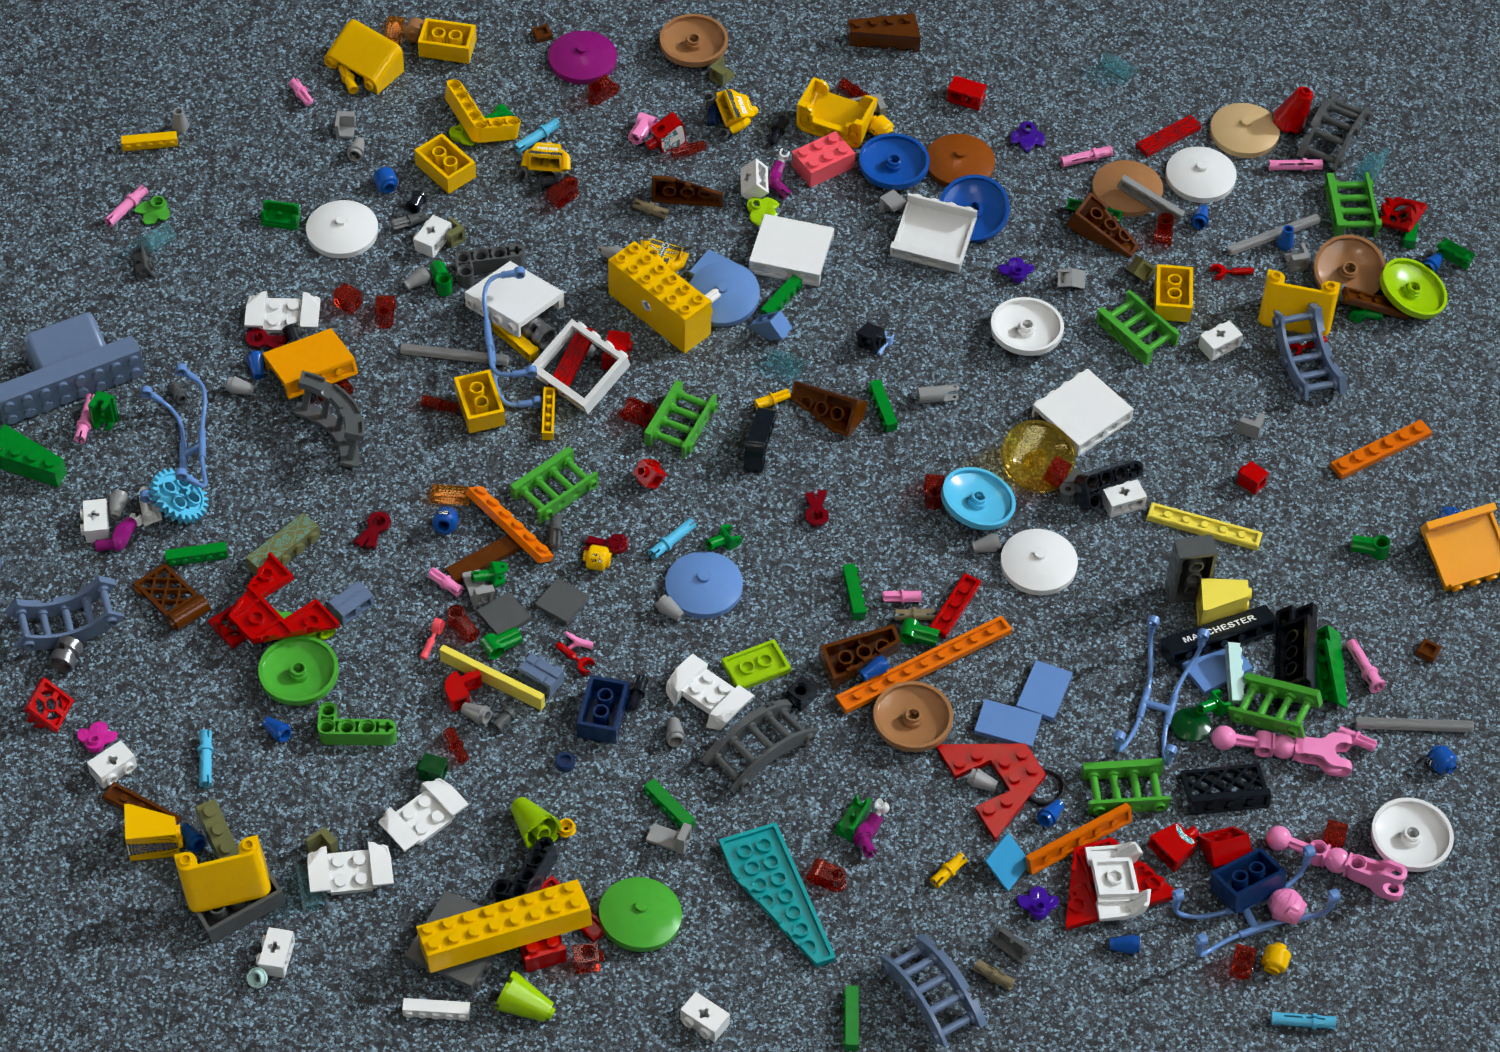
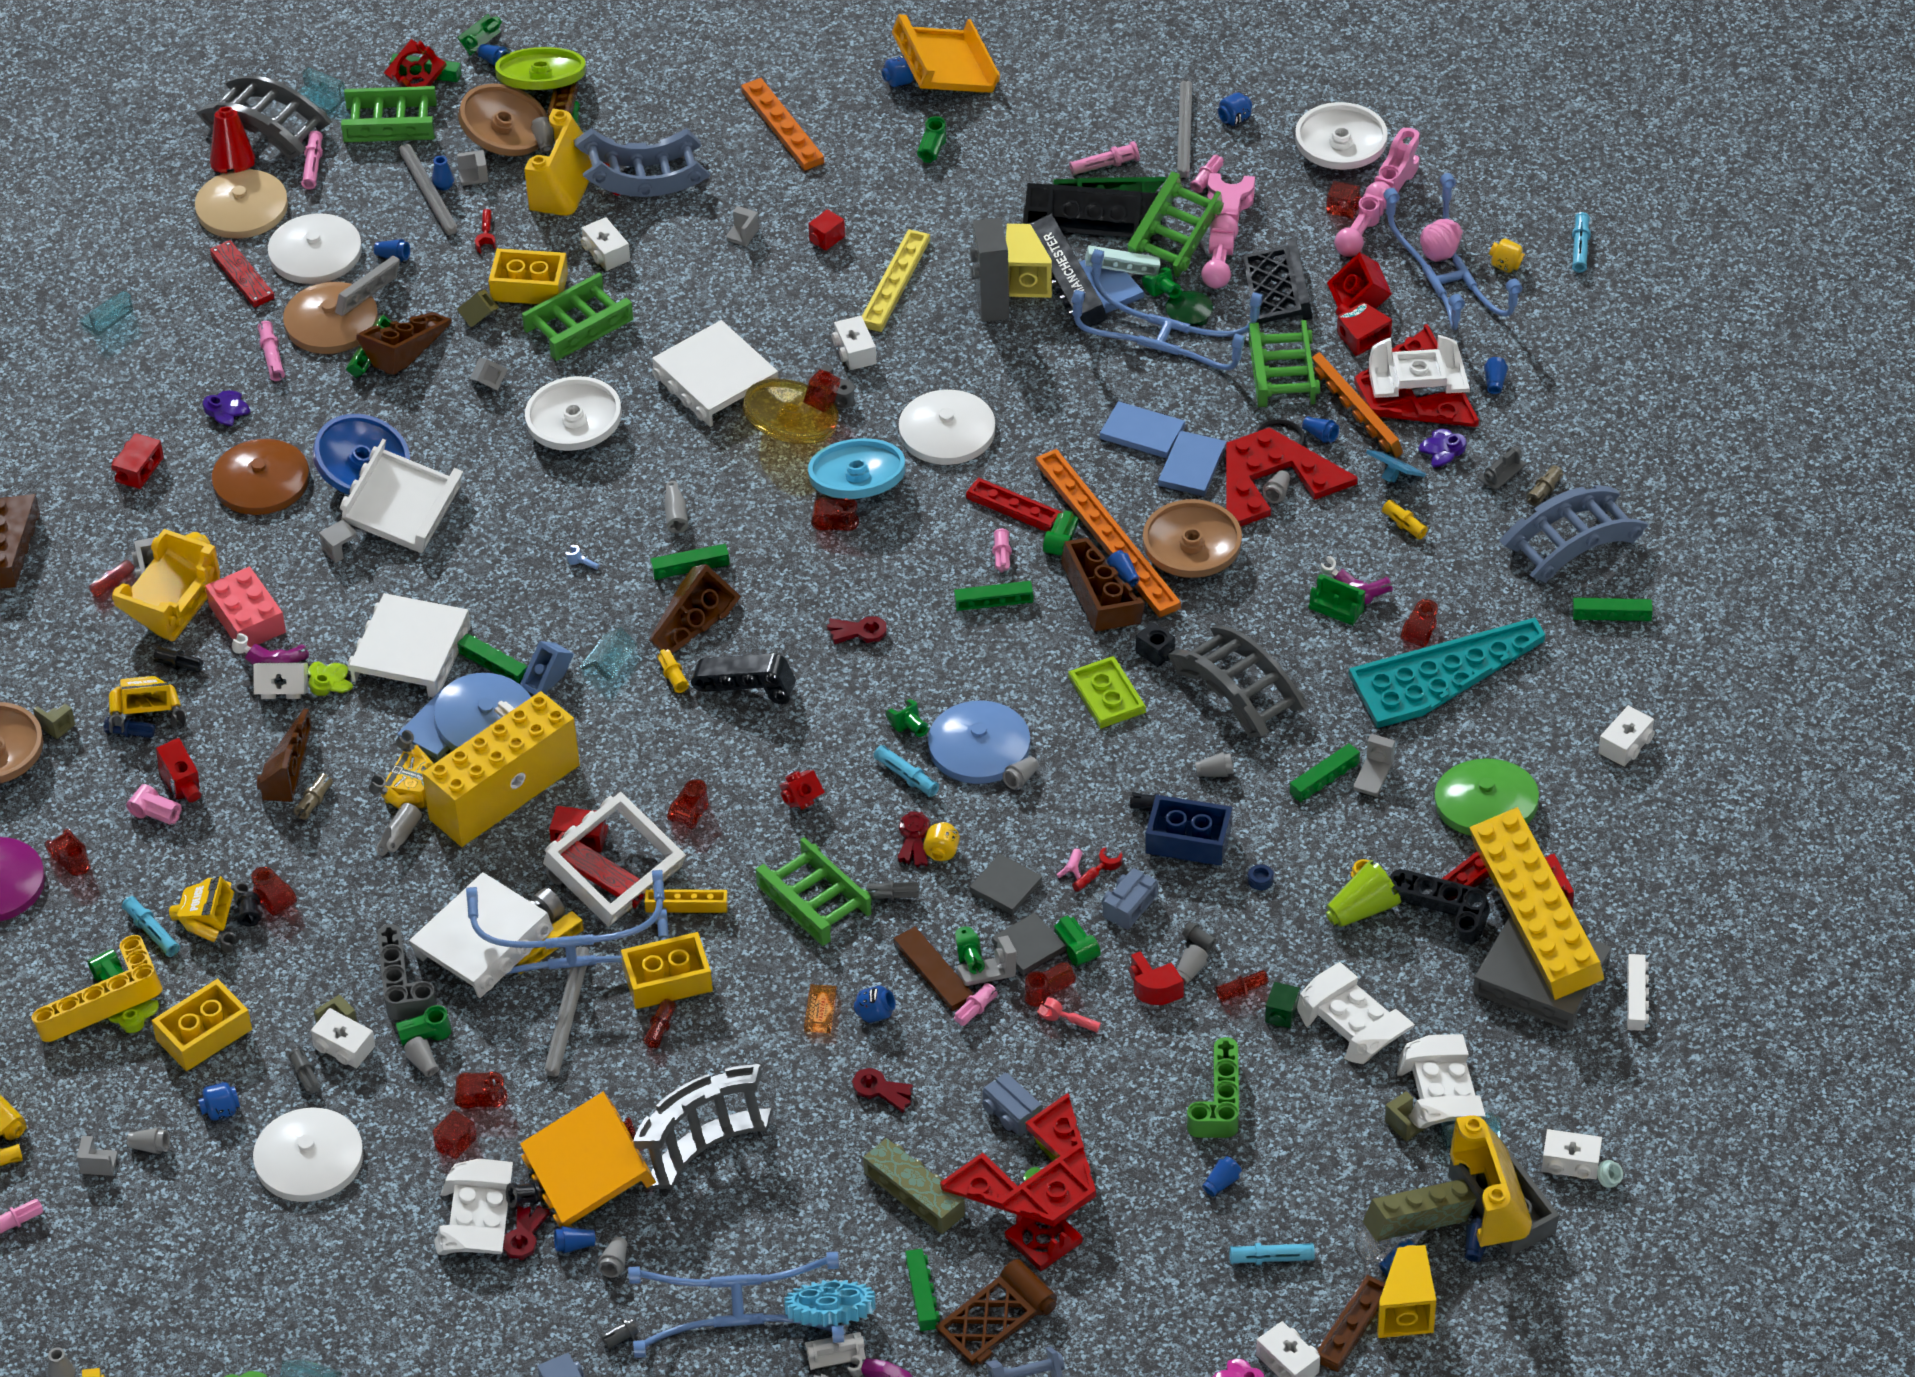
camera: 85 degrees left, 5 degrees down
(280, 215) = (277, 1227): green hinge -> none
(298, 670) = (1133, 1150): bright green dish -> none
(418, 198) = (269, 1063): black bush -> none
(493, 678) = (1139, 942): light yellow tile -> none
(509, 524) = (872, 942): orange plate -> none
(524, 1000) = (1620, 904): lime cone -> none
(584, 965) = (1555, 840): clear red brick -> none
(668, 407) = (679, 773): bright green fence -> none
(688, 149) = (201, 756): clear red axle -> none
(706, 691) = (1158, 730): white piece -> none
(871, 337) = (578, 564): black brick -> none
(894, 161) = (262, 533): blue dish -> none
(914, 613) = (1030, 539): dark tan pin -> none
(987, 544) = (921, 467): light grey cone -> none
(1016, 269) = (464, 427): dark purple plate -> none
(1089, 484) = (834, 352): black beam -> none
(1163, 230) = (413, 283): clear red piece -> none
(1246, 955) = (1510, 272): clear red brick -> none
(1247, 880) = (1413, 264): dark blue brick -> none
(1428, 650) = (1080, 110): reddish brown tile -> none

